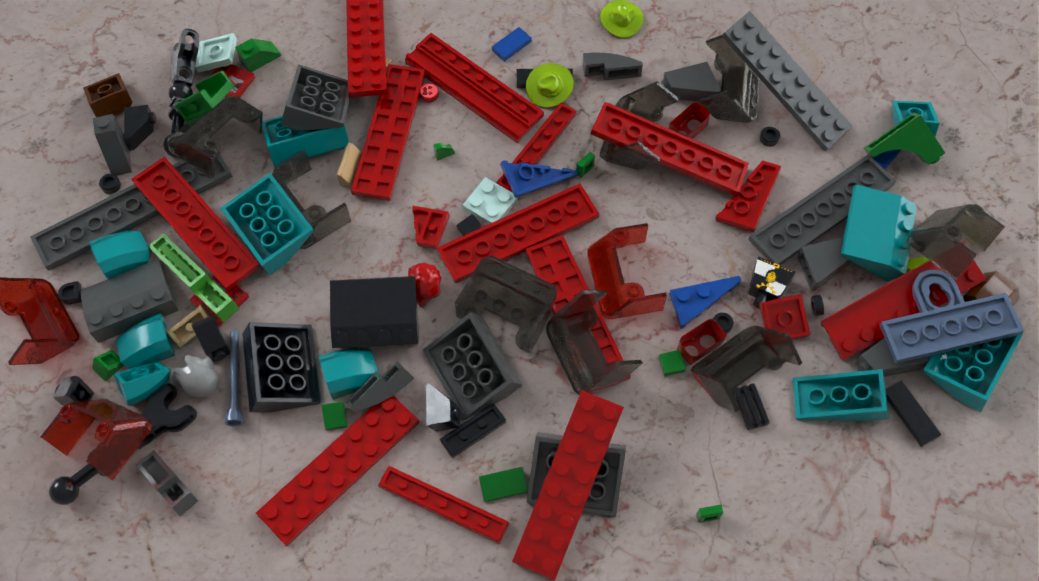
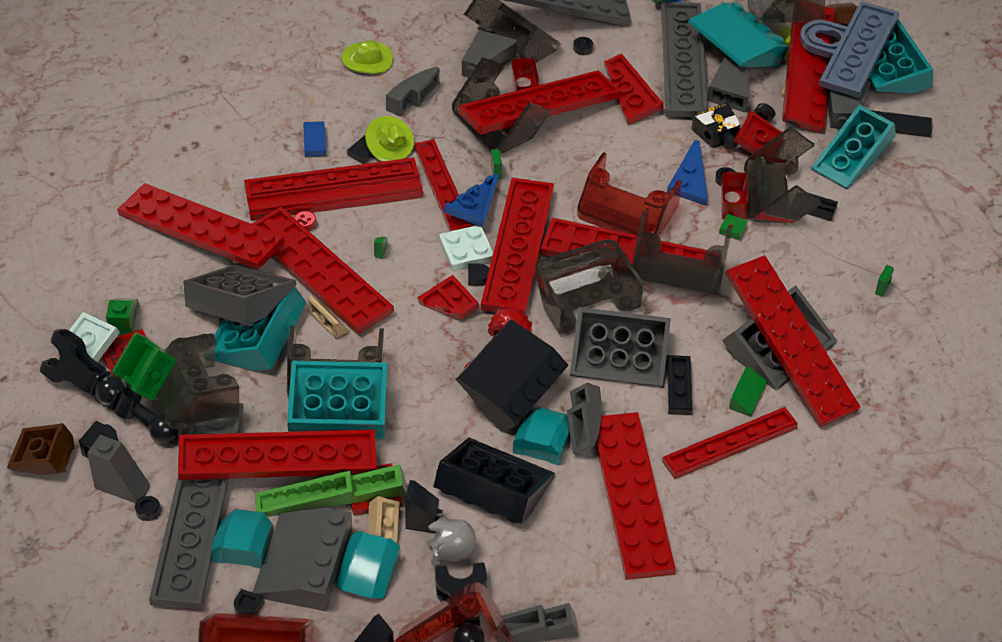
camera: 55 degrees left, 15 degrees down
(107, 365) = (360, 613): green slope -> none
(141, 381) = (413, 587): teal slope -> none
(234, 416) = (512, 540): sand blue piece -> none
(334, 415) = (579, 468): green slope -> none
(441, 410) = (644, 387): slope -> none

